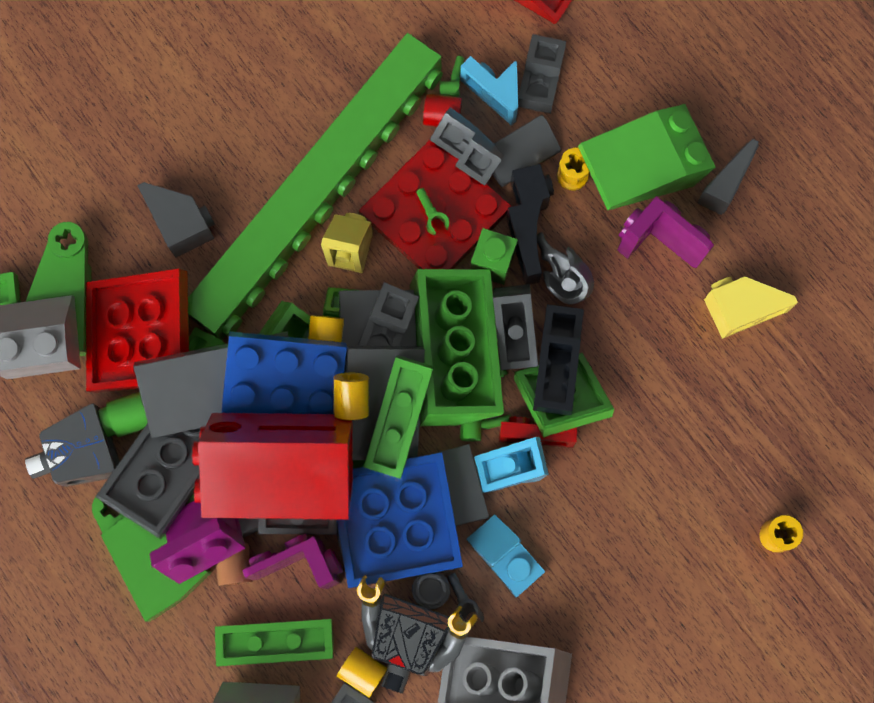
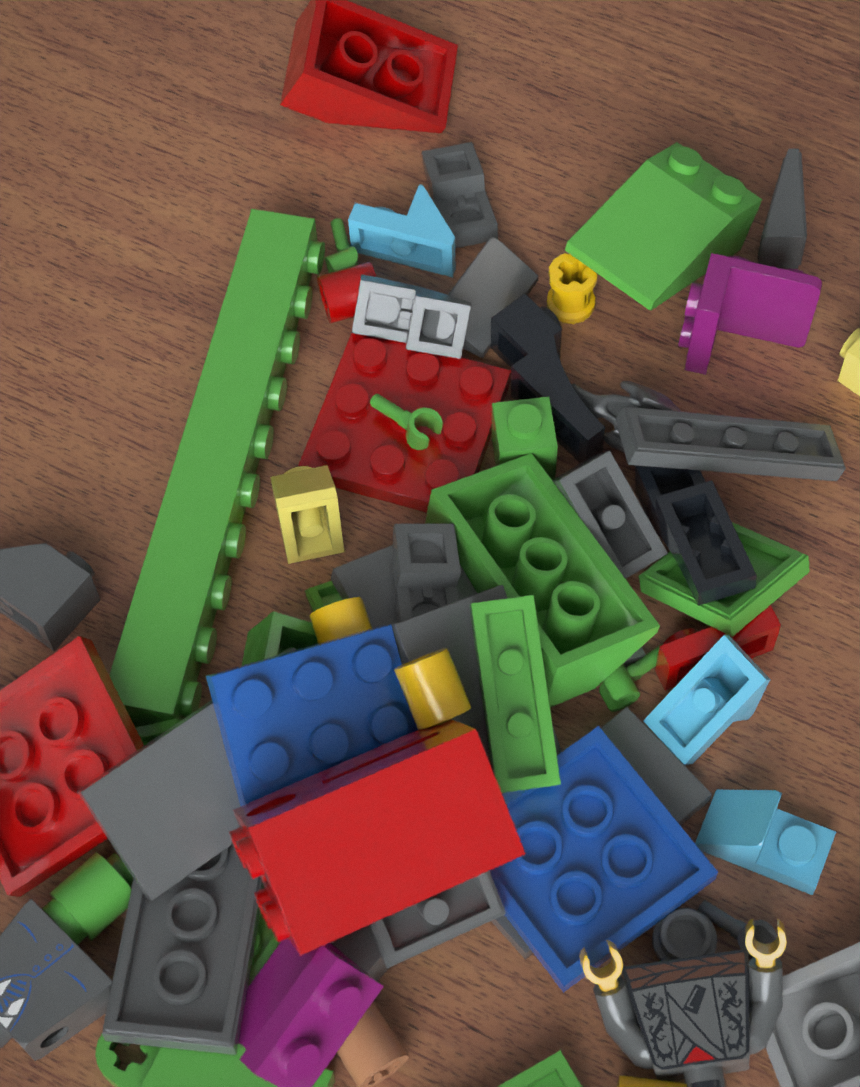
camera: 25 degrees left, 15 degrees down
(322, 562) = (484, 953): magenta bracket -> none
(609, 317) = (729, 444): none -> dark grey tile

